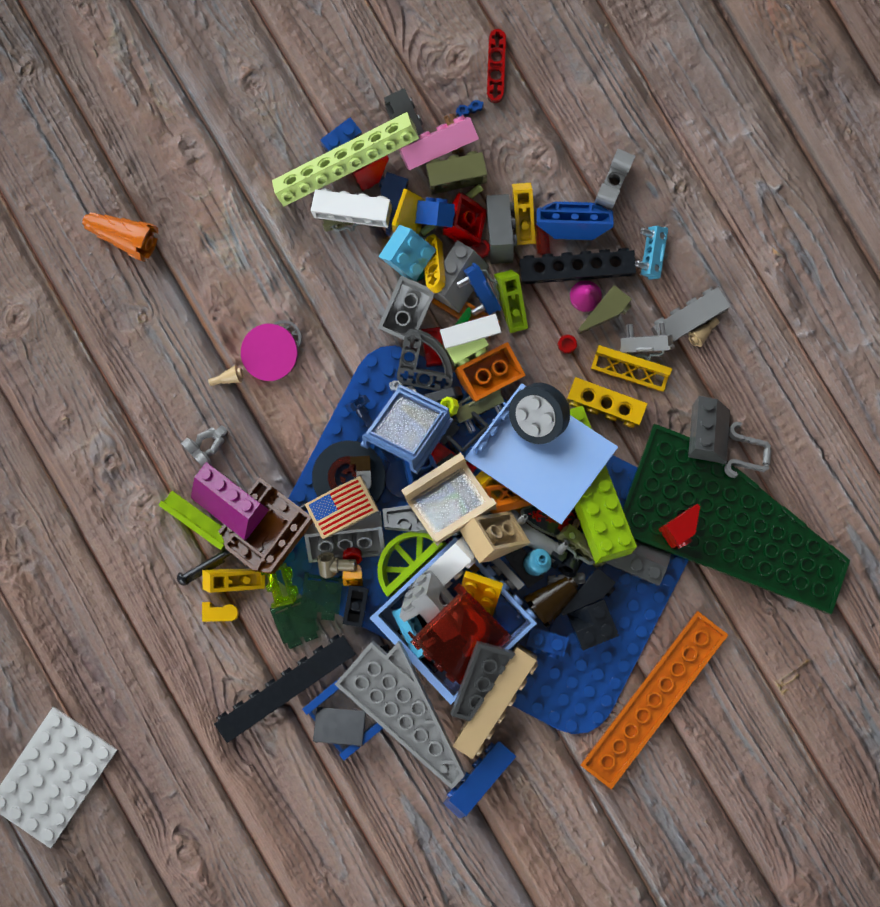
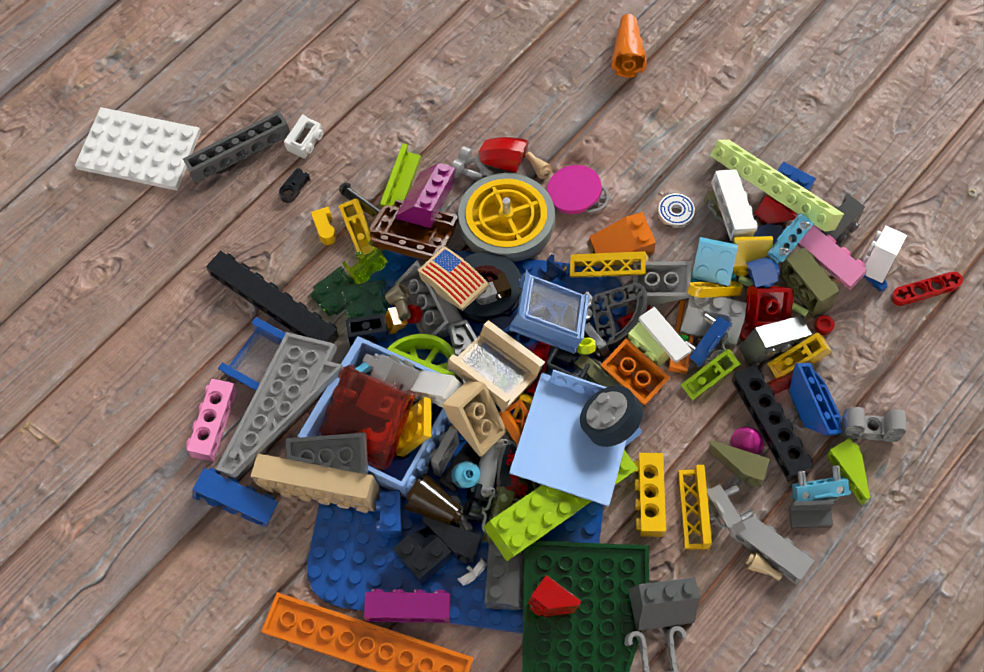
camera: 70 degrees right, 20 degrees down
(95, 674) = (236, 147): none -> dark grey brick
(108, 589) = (307, 146): none -> white window
(157, 627) = (295, 184): none -> black piece
(203, 408) = (503, 153): none -> red slope
(278, 430) = (506, 216): none -> yellow wheel
(327, 251) = (676, 201): none -> white tile
(339, 726) = (249, 355): black piece -> none
(344, 327) = (625, 235): none -> orange slope
(363, 349) = (608, 260): none -> yellow fence
(369, 759) = (208, 448): none -> bright pink brick
(413, 173) = (778, 252): none -> medium azure piece
(454, 92) = (883, 253): none -> white brick
(498, 176) = (824, 325): none -> red tile
(567, 344) = (692, 441): red tile -> none
(624, 585) = (473, 573): none -> white piece
(636, 653) = (407, 607): none -> magenta brick
(642, 216) = (851, 464): none -> lime slope
(673, 270) = (811, 514): none -> dark grey panel

